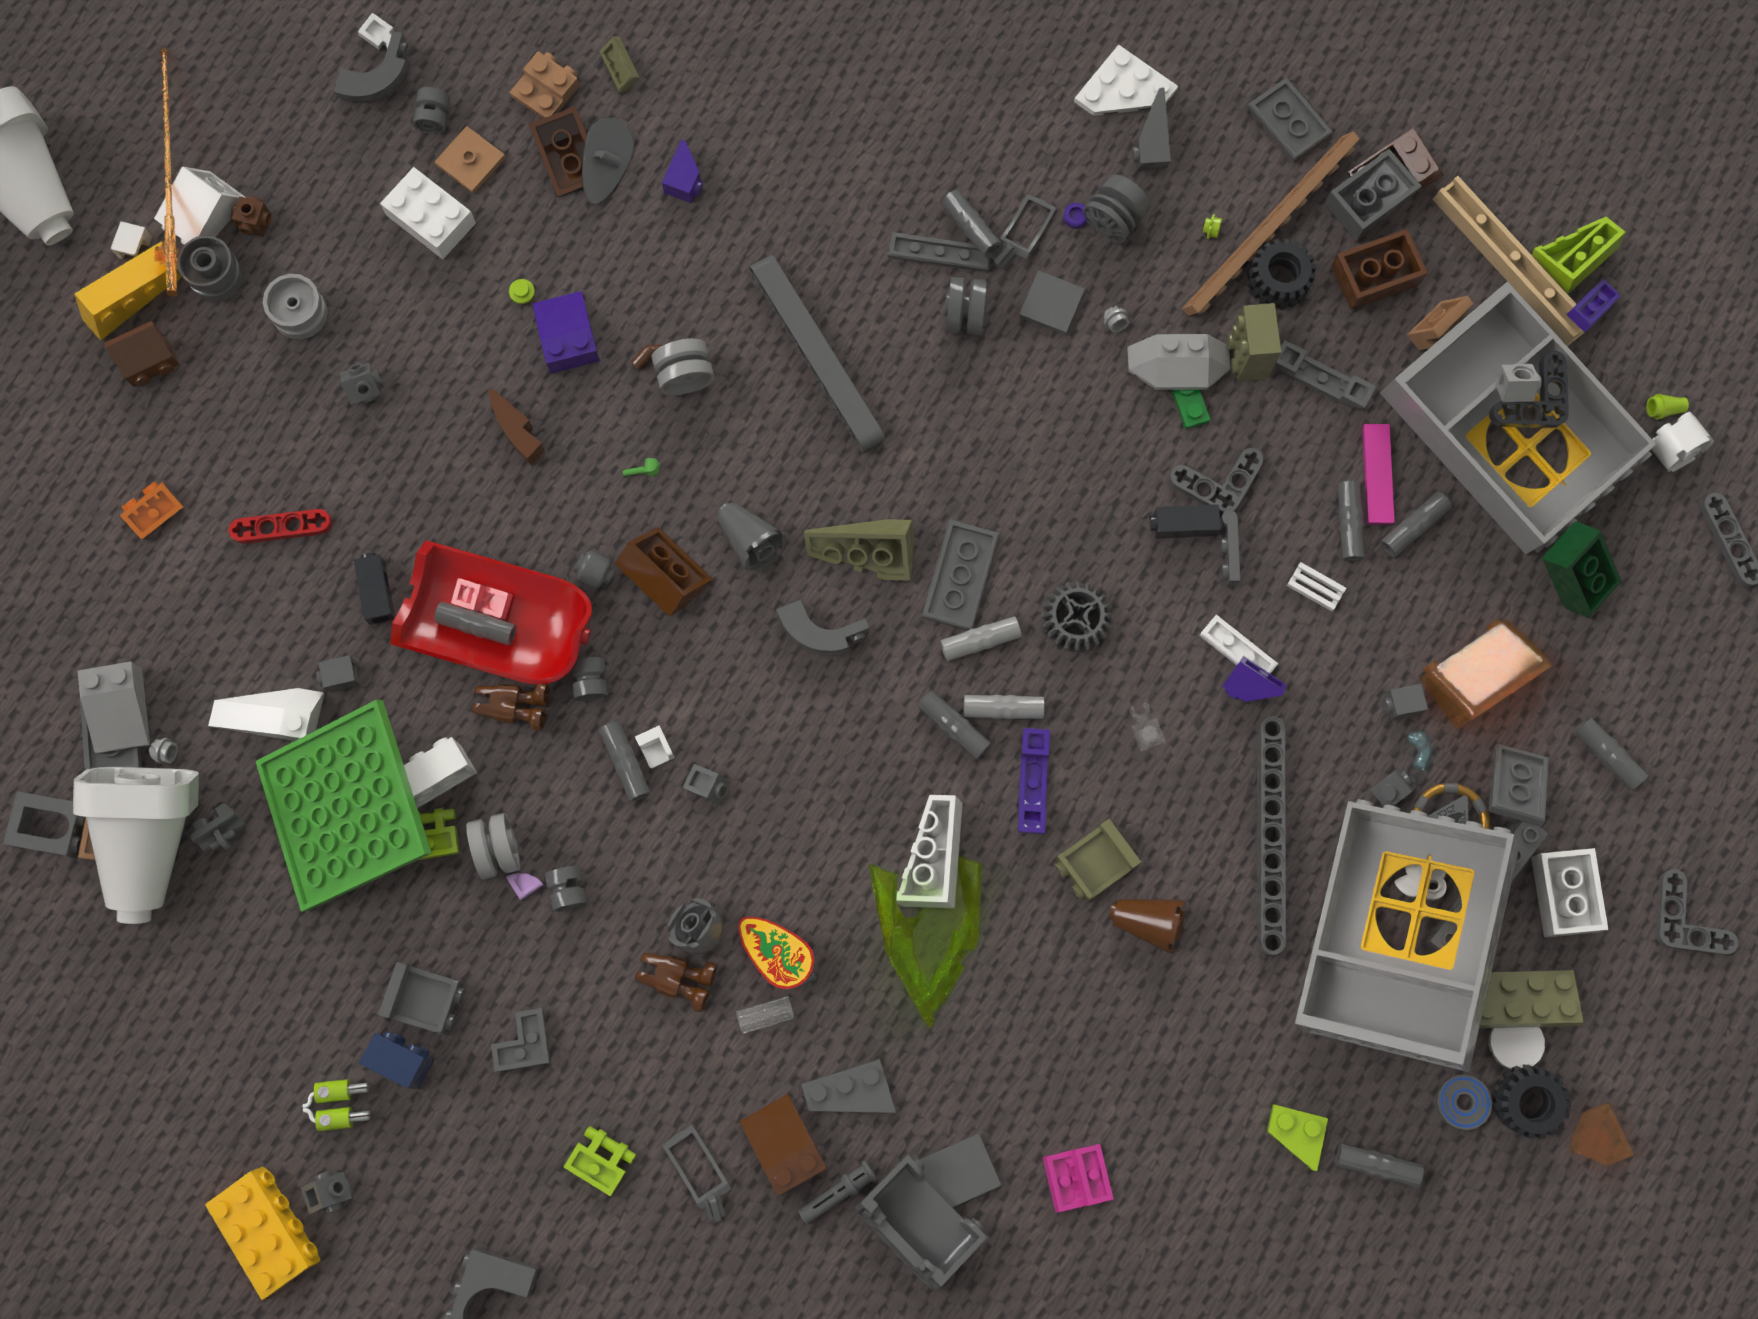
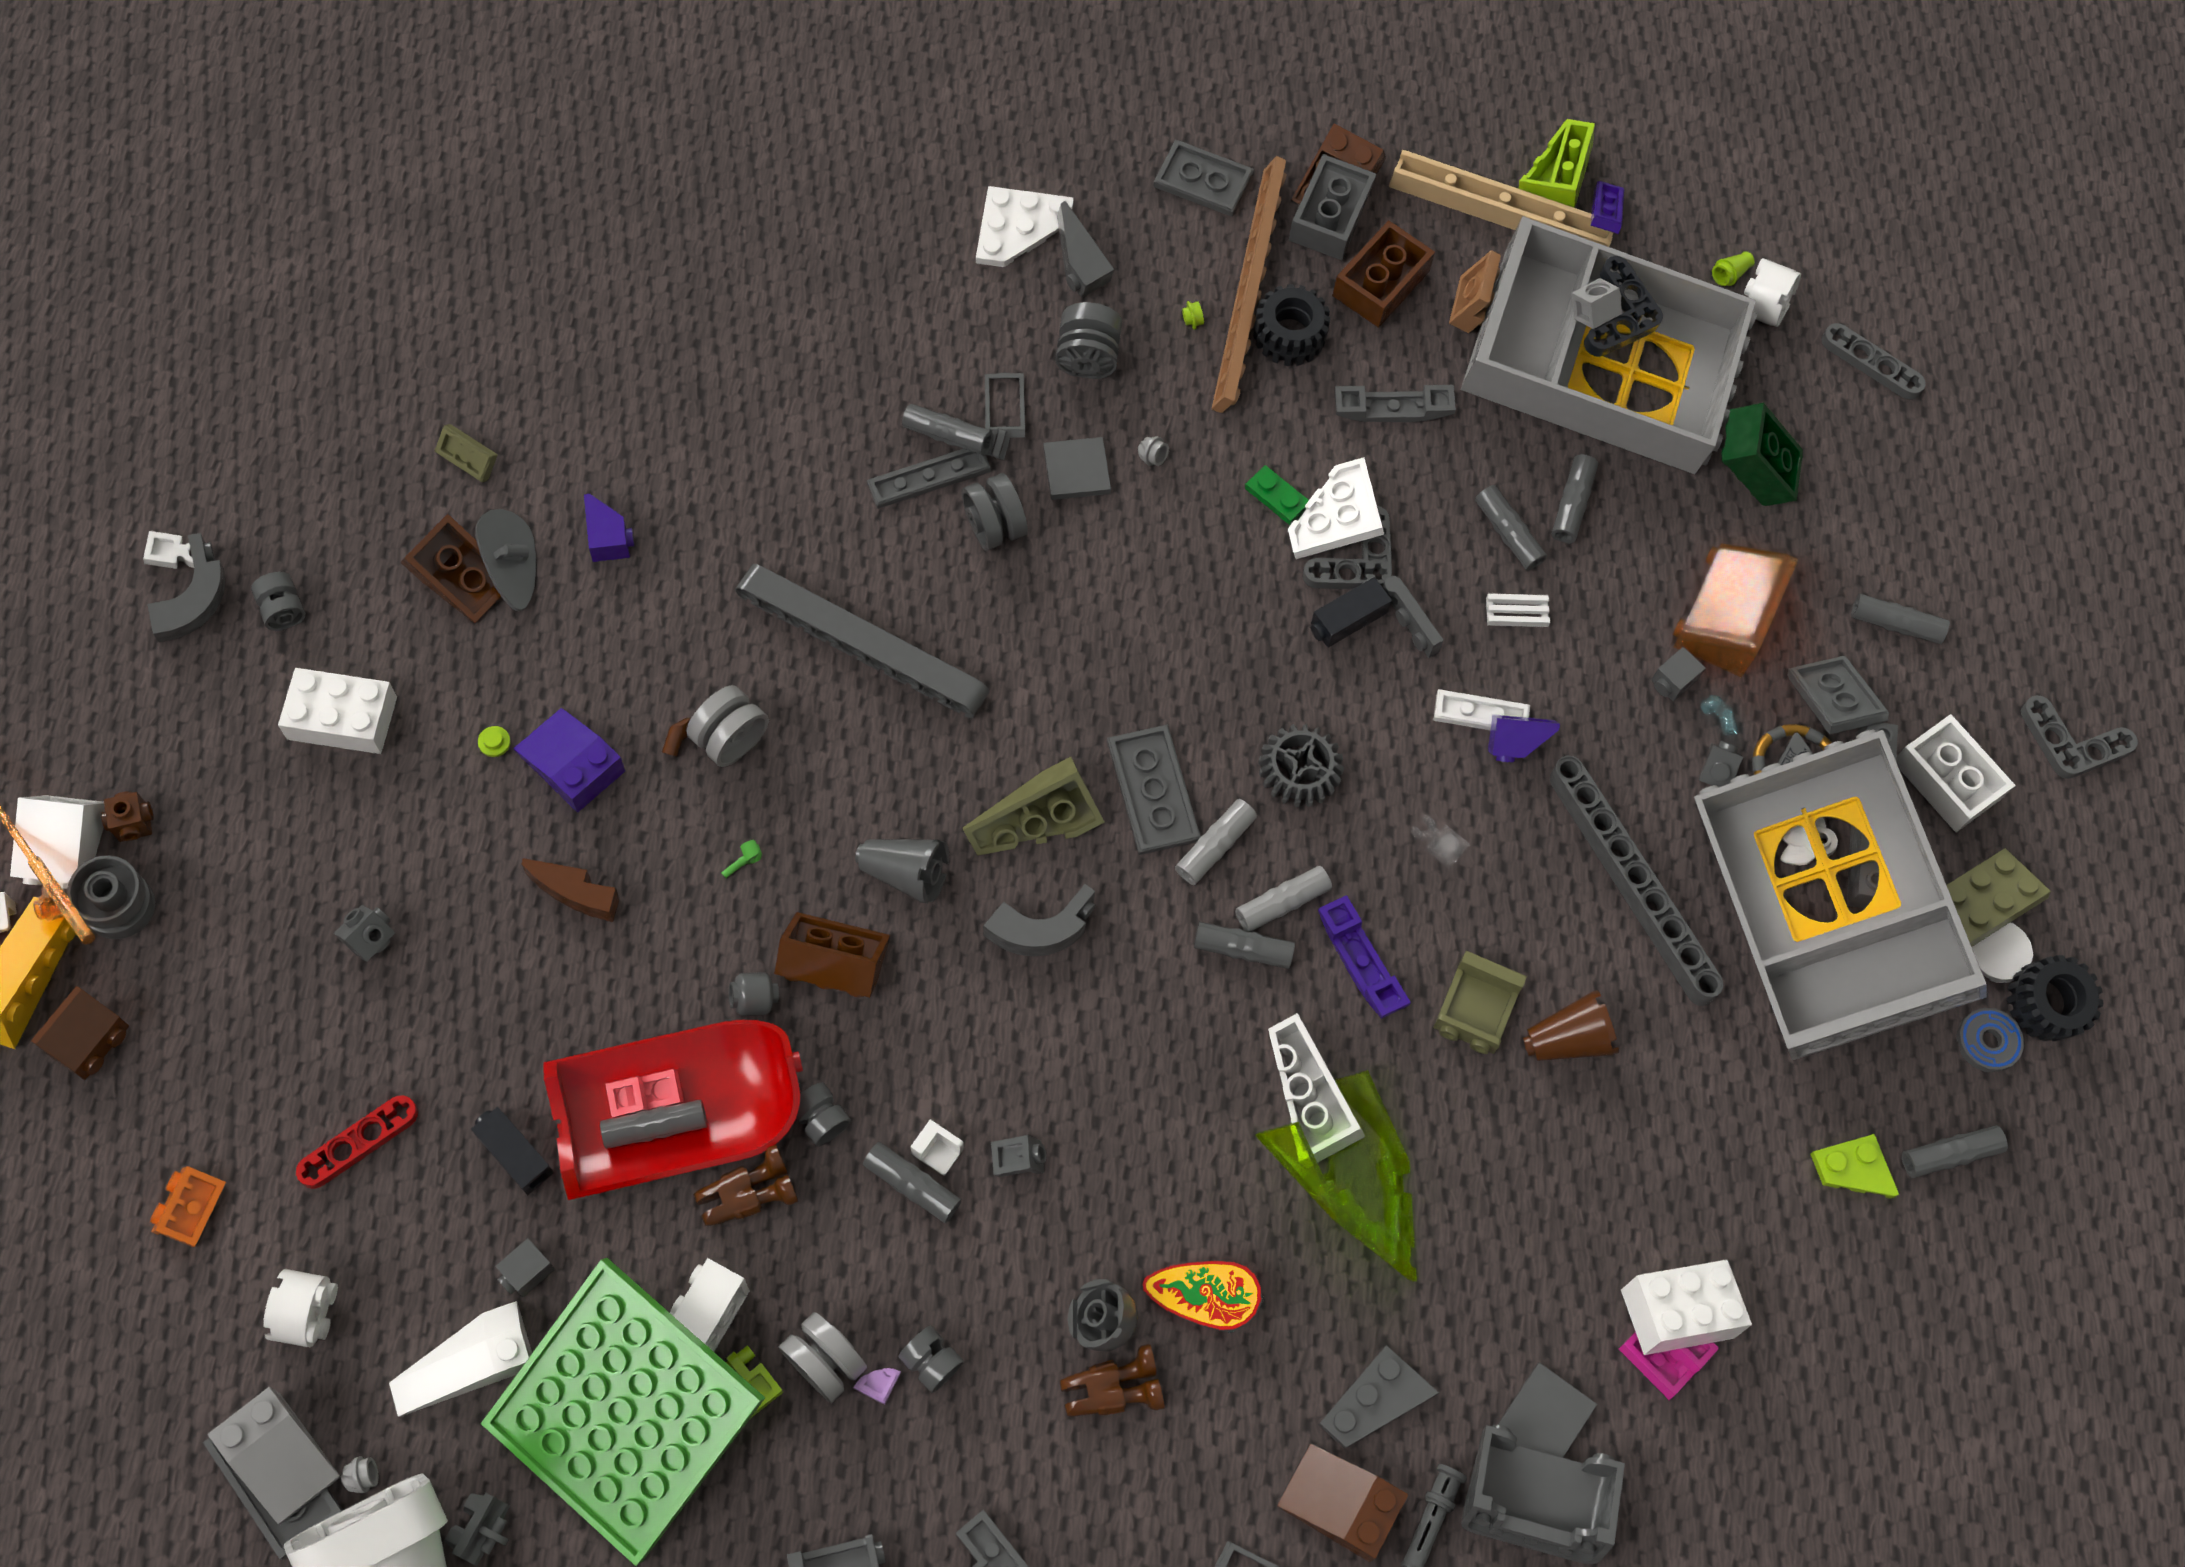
camera: 35 degrees left, 10 degrees down
(181, 619) = (299, 1308): none -> white brick
(295, 306) = (238, 887): light grey wheel -> none
(470, 159) = (352, 633): medium nougat plate -> none
(545, 85) = (394, 514): medium nougat plate -> none
(765, 1015) = (1234, 1370): clear axle -> none
(1074, 216) = (1047, 371): dark purple tile -> none
(1104, 1158) = (1685, 1307): none -> white brick
(1179, 361) = (1241, 460): light grey wedge -> none
(1225, 440) = (1338, 512): none -> white plate
(1254, 342) = (1312, 399): olive brick -> none
(1378, 474) = (1507, 470): dark pink tile -> none
(1600, 1136) = (2138, 996): clear orange plate -> none

